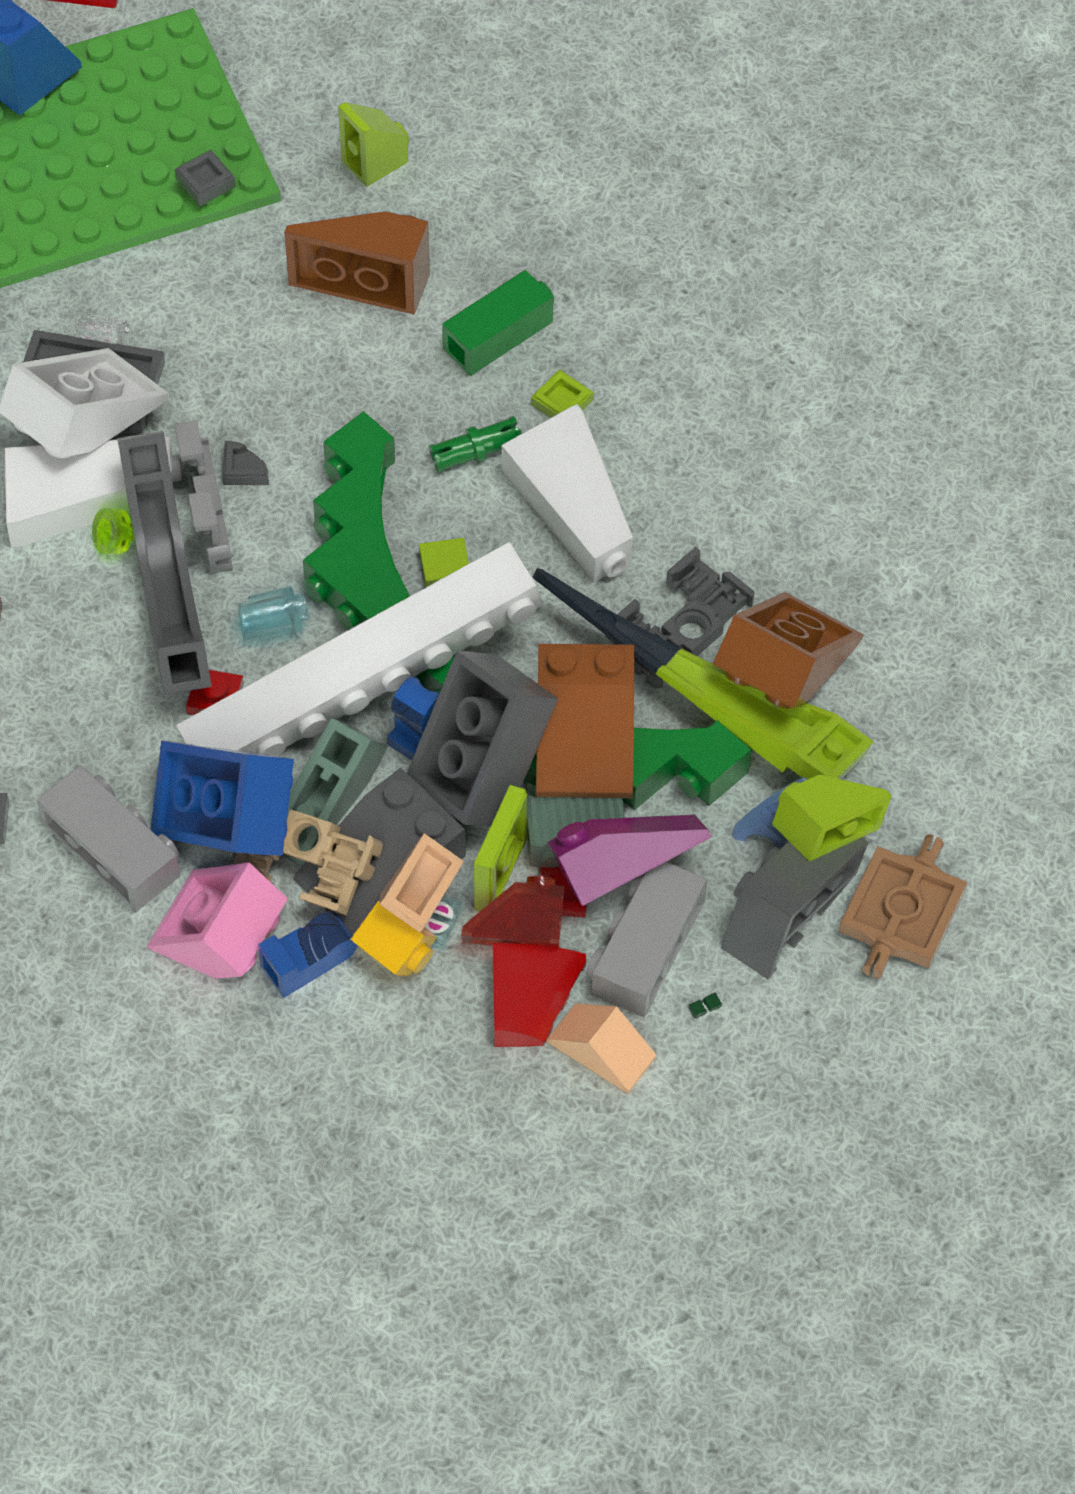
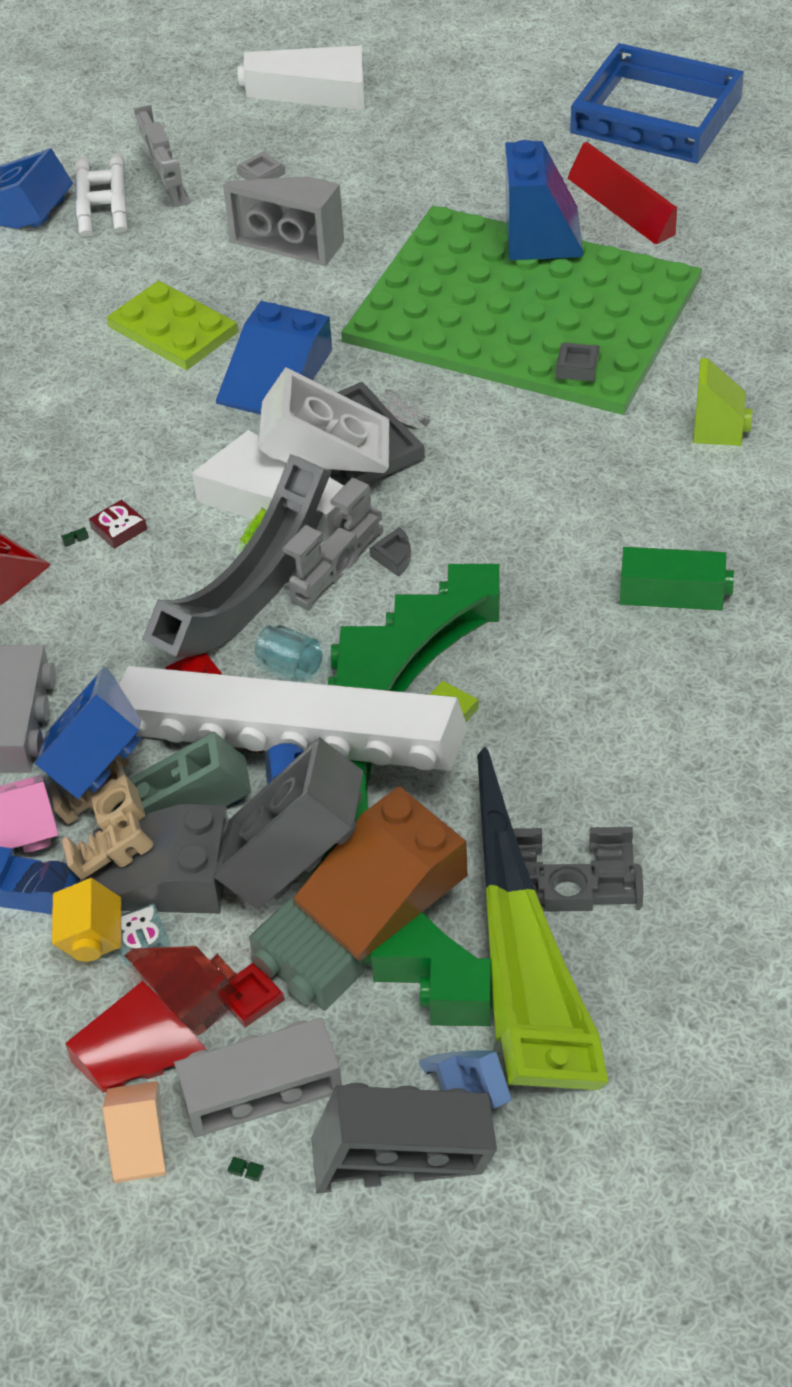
camera: 50 degrees right, 10 degrees down
(362, 258) = (620, 472): dark orange slope -> none
(420, 882) = (129, 892): light nougat slope -> none
(473, 444) = (562, 646): green pin -> none
(501, 848) = (222, 914): lime tile -> none
(560, 394) = (665, 662): lime tile -> none
(570, 490) = (590, 723): white slope -> none
(615, 850) = (297, 986): slope -> none
(785, 649) = (611, 950): dark orange slope -> none
(828, 813) = (477, 1095): lime slope -> none
(903, 906) = (478, 1231): medium nougat plate -> none

